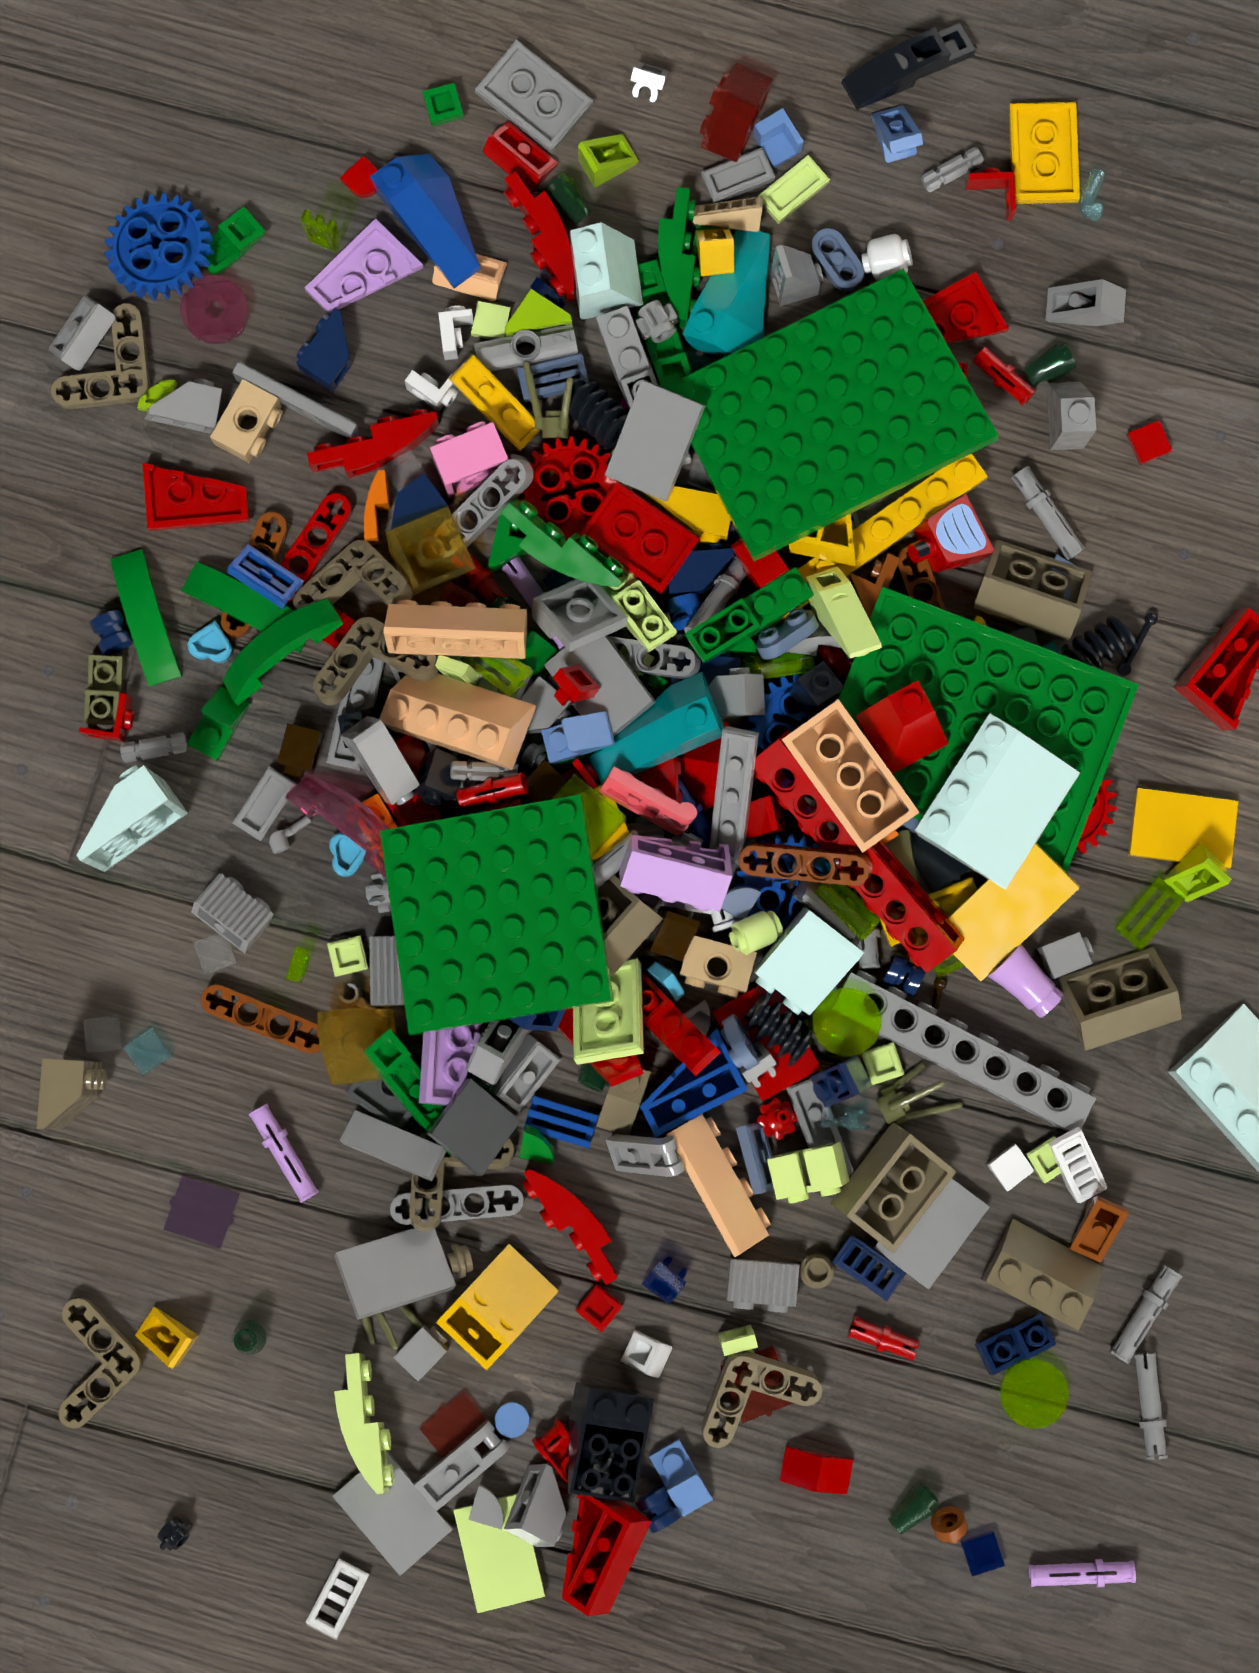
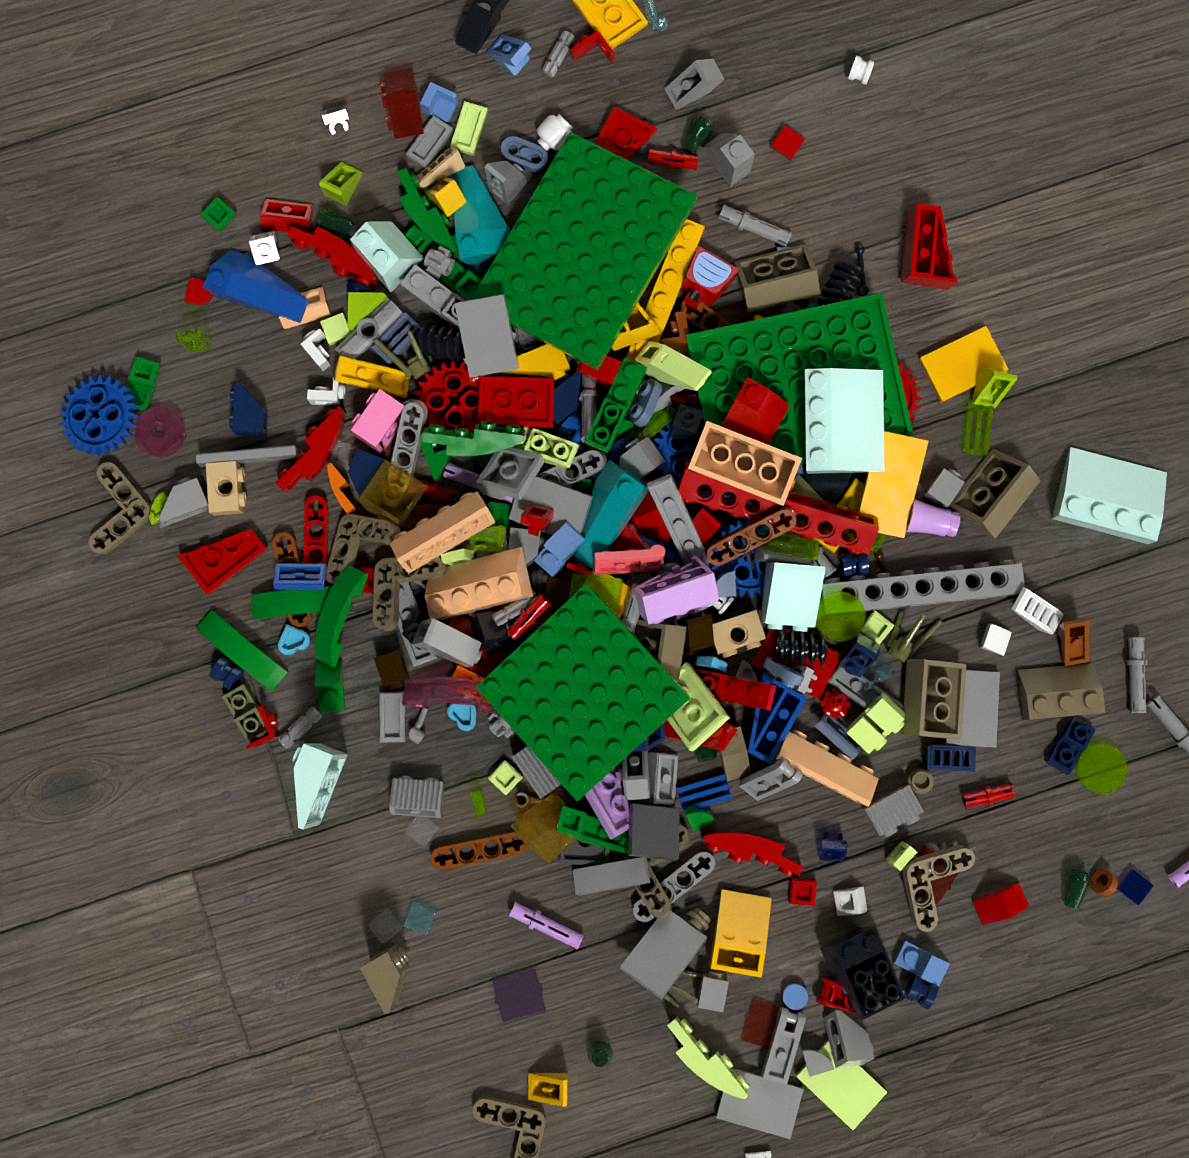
camera: 25 degrees left, 0 degrees up
(82, 333) = (86, 500): light grey slope -> none
(362, 268) = (234, 347): lavender wing -> none
(470, 175) = (264, 247): none -> white bracket
(534, 96) = (271, 173): light grey tile -> none
(602, 1553) = (906, 1043): red wedge -> none
(755, 932) = (748, 597): yellowish green brick -> none
(1044, 1161) = (1013, 622): yellowish green tile -> none

